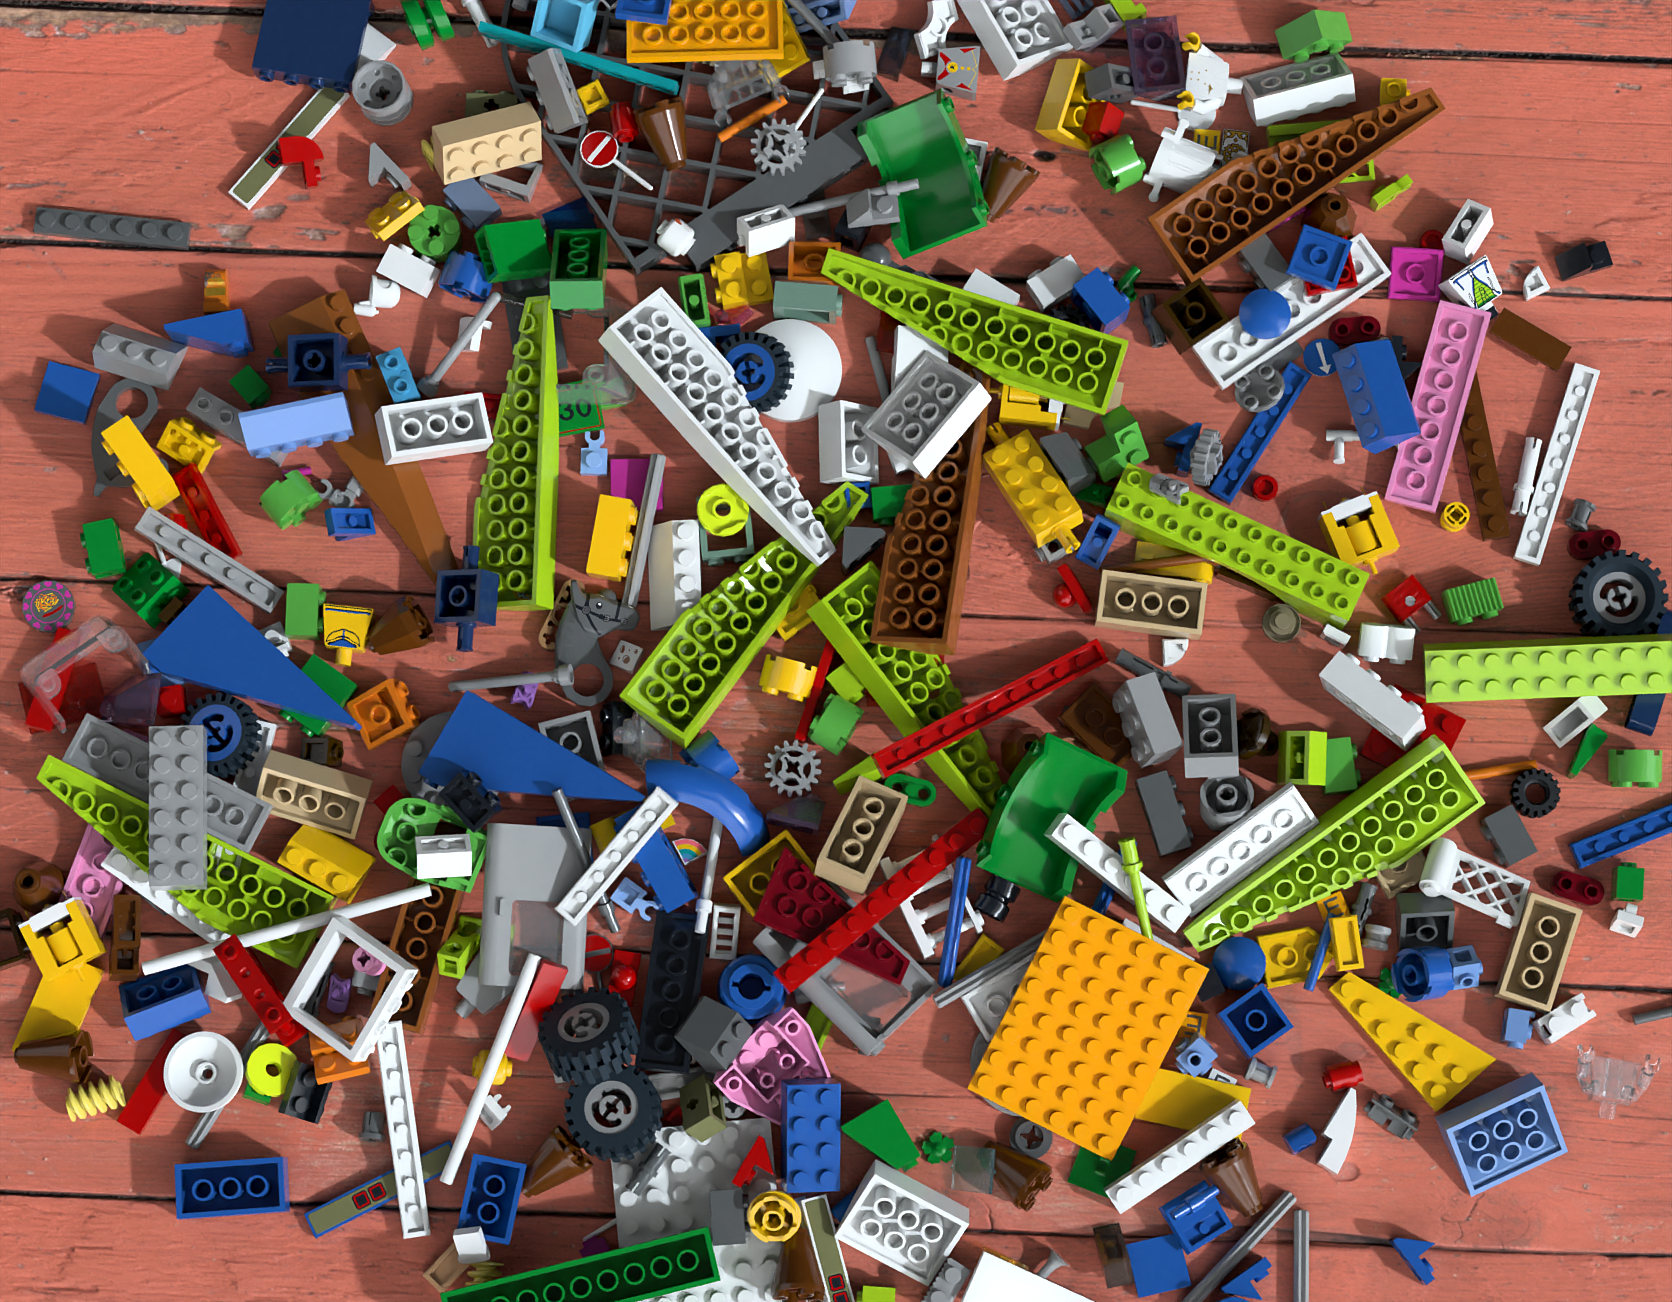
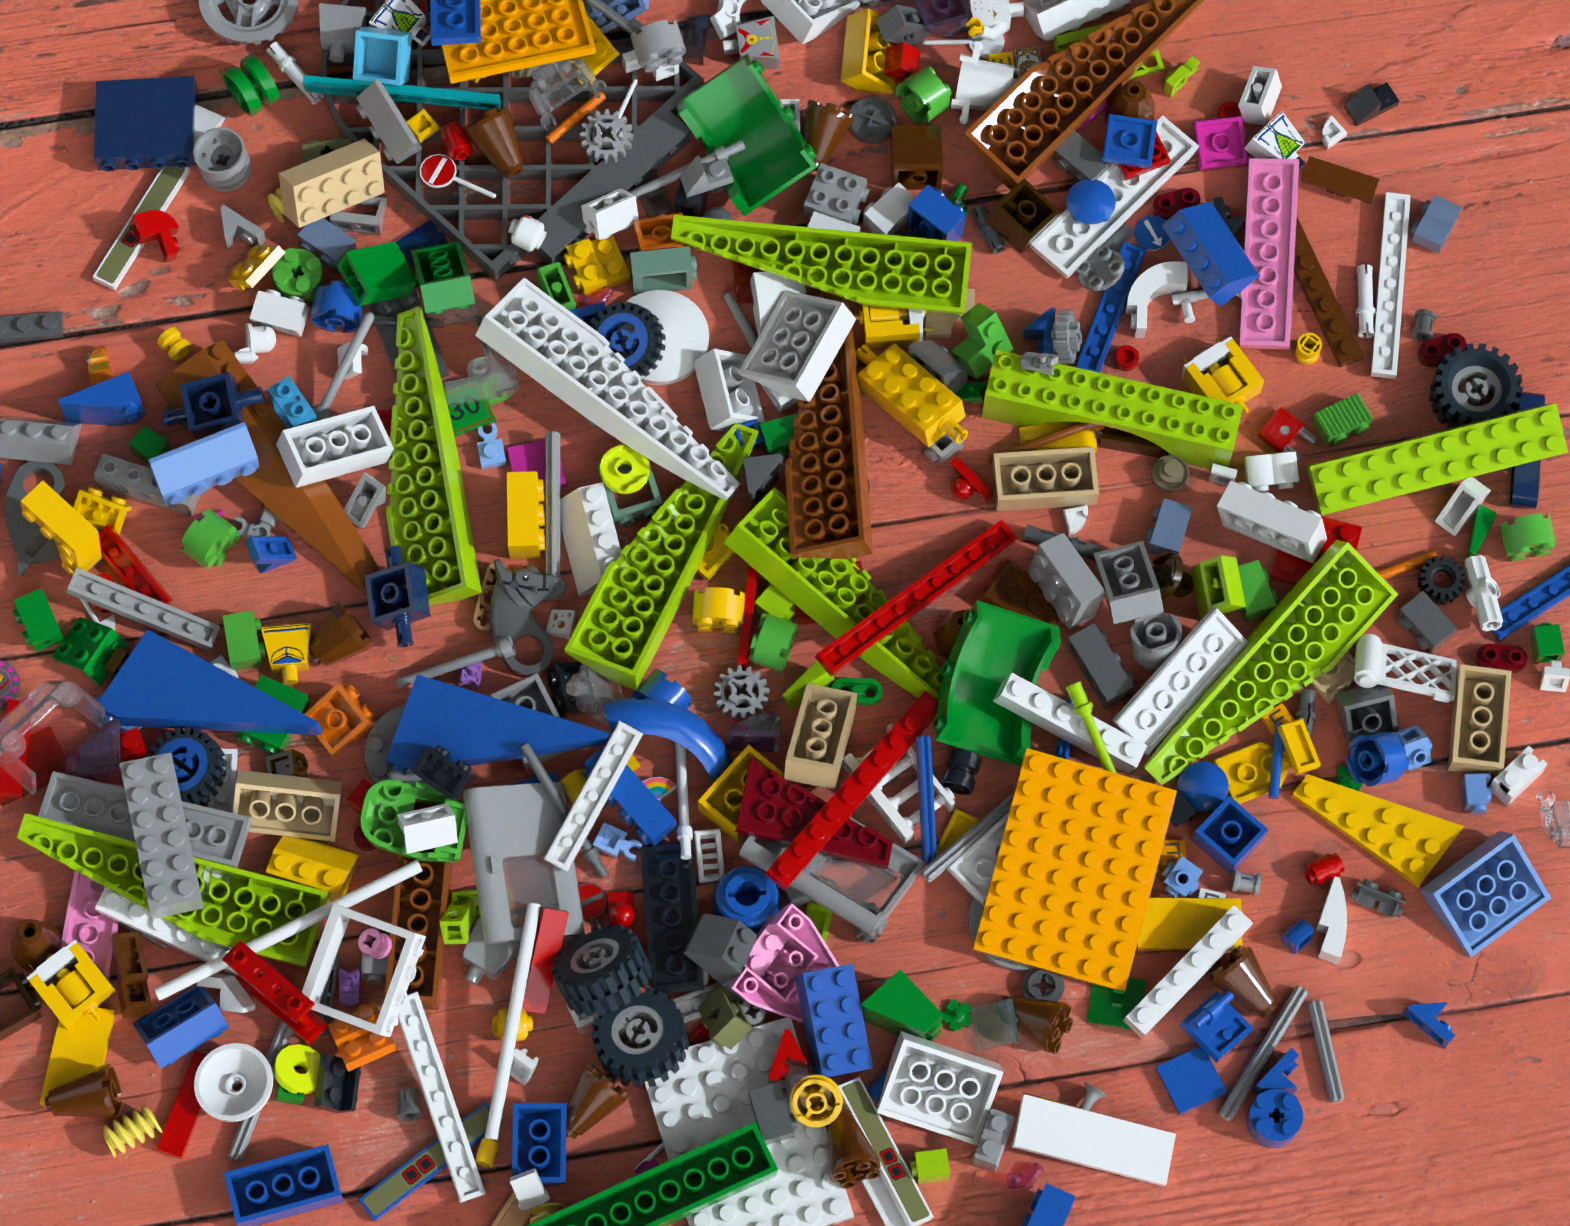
camera: 15 degrees left, 10 degrees down
(296, 280) = (174, 344): none -> yellow wheel
(440, 1193) = (486, 1152): none -> yellow hinge
(454, 489) = (365, 498): none -> light grey slope
(648, 1169) = (684, 1085): dark grey pin -> none
(1003, 255) = (836, 194): none -> light grey brick
(1059, 177) = (872, 120): none -> dark grey tile
(1095, 227) = (916, 156): none -> reddish brown slope
(1098, 541) = (983, 431): blue slope -> none
(1113, 1255) = (1147, 1079): clear smoke slope -> none
(1267, 682) = (1170, 527): none -> sand blue brick
(1317, 411) = (1155, 281): none -> white arch
(1376, 937) = (1325, 737): light grey wheel -> none
(1574, 817) = (1483, 593): none -> white piece
(1620, 407) = (1436, 223): none -> sand blue brick

